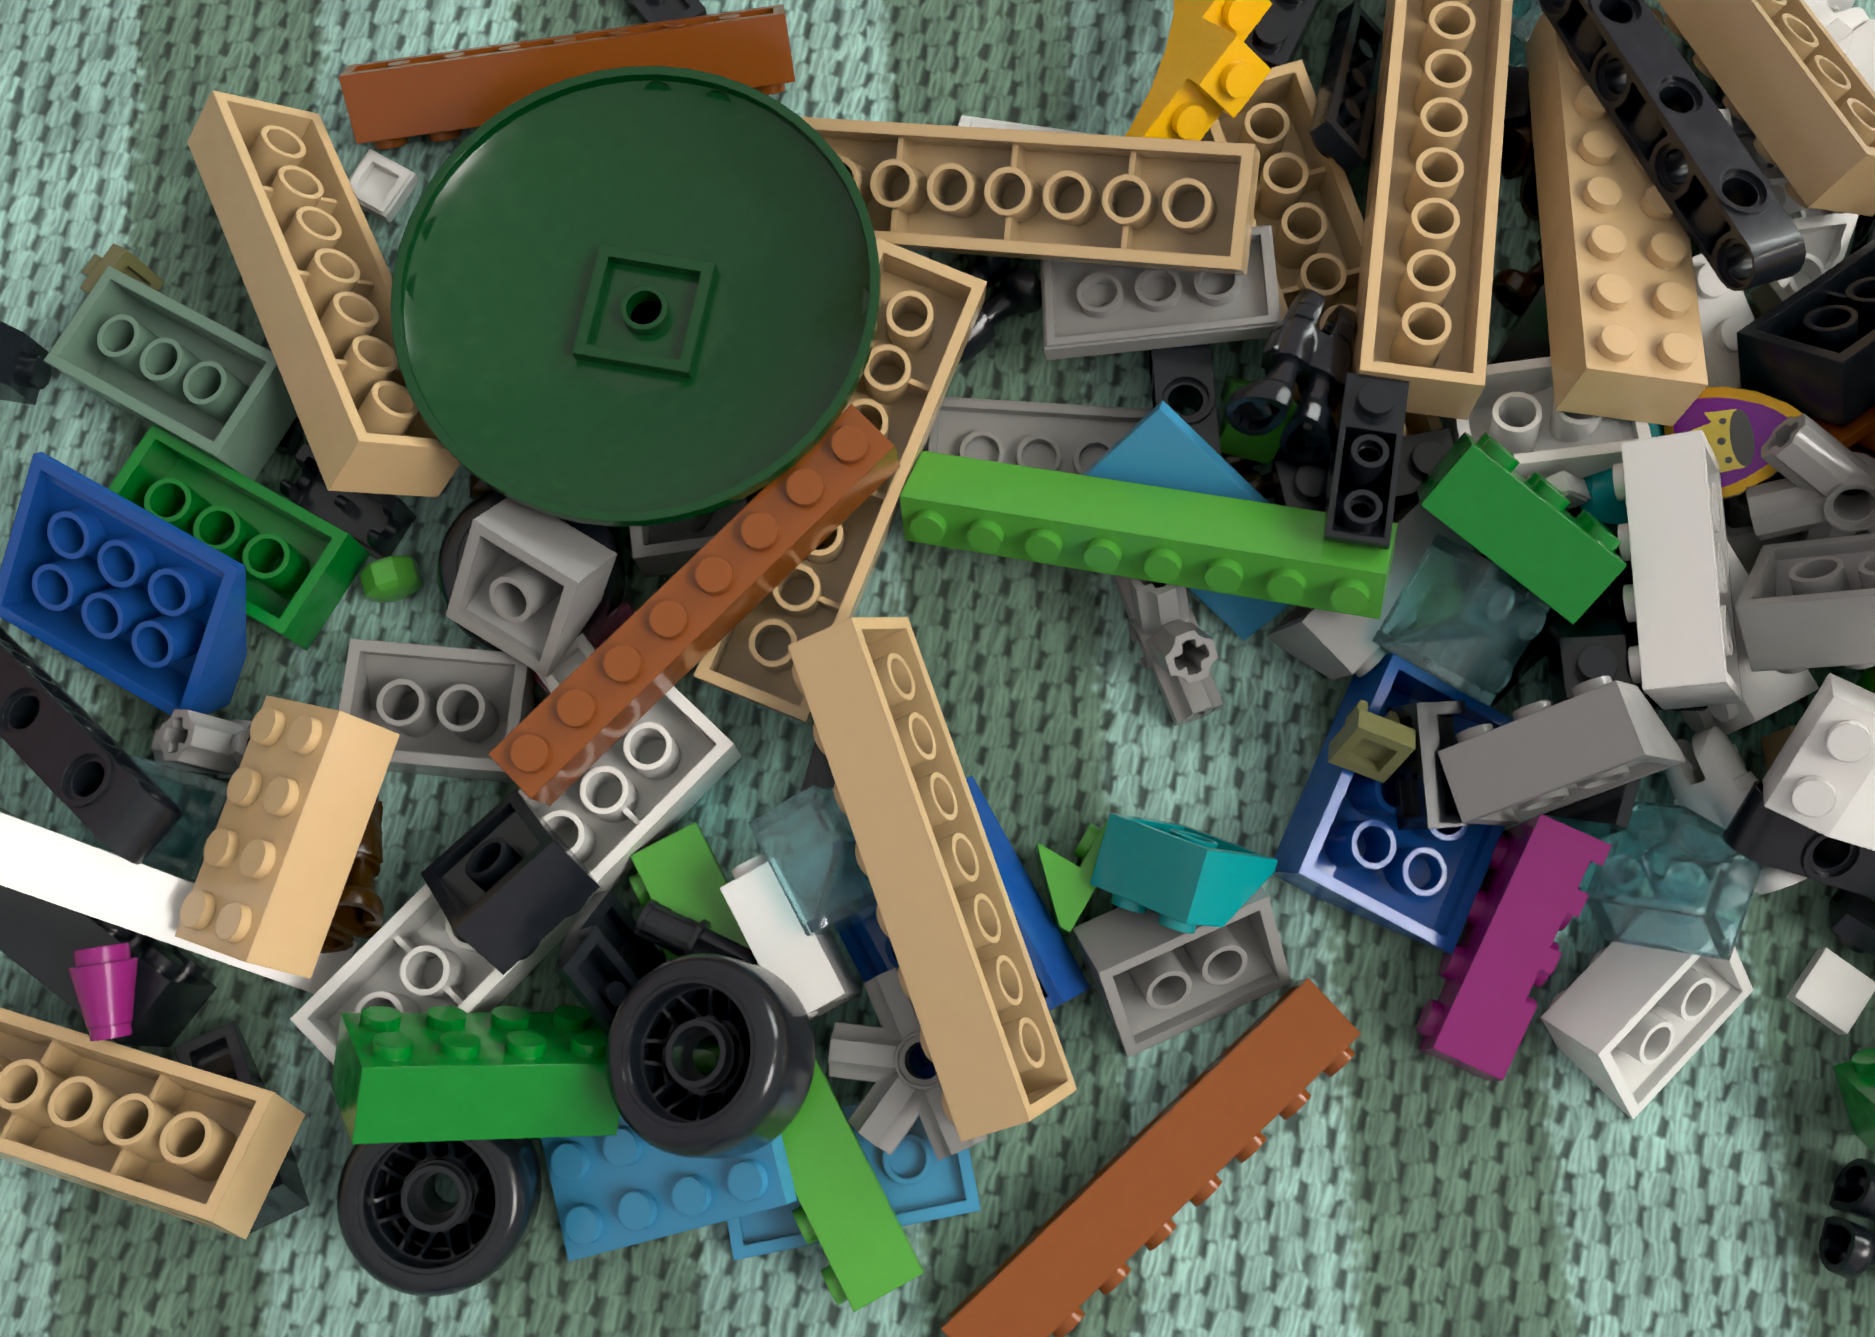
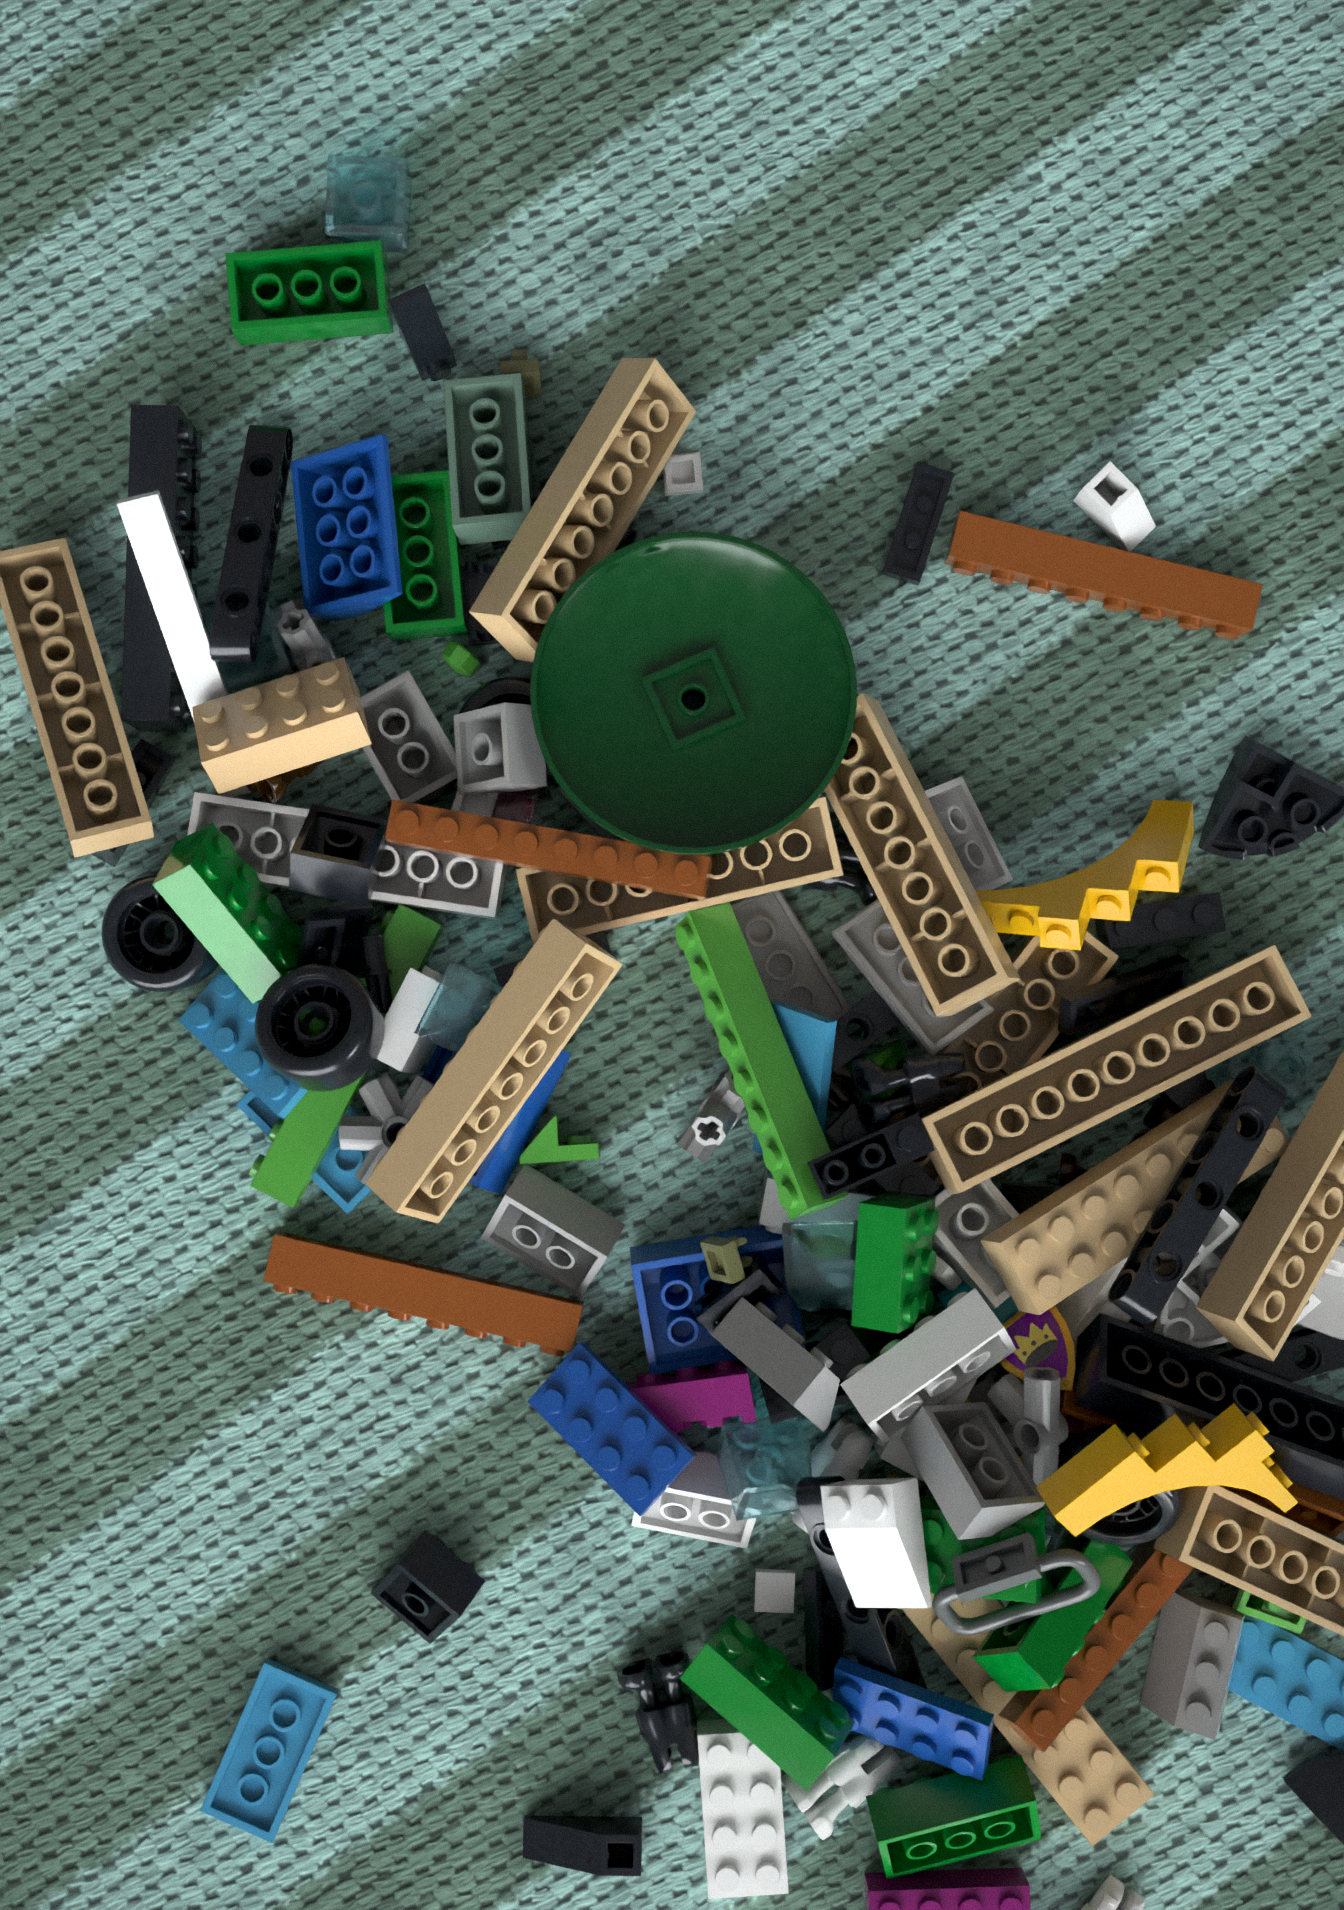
camera: 50 degrees right, 10 degrees up
(105, 989) = (142, 694): magenta cone -> none
(470, 85) = (821, 536): dark orange brick -> none
(1177, 872) = (590, 1200): teal slope -> none
(1501, 1046) = (612, 1428): none -> blue plate

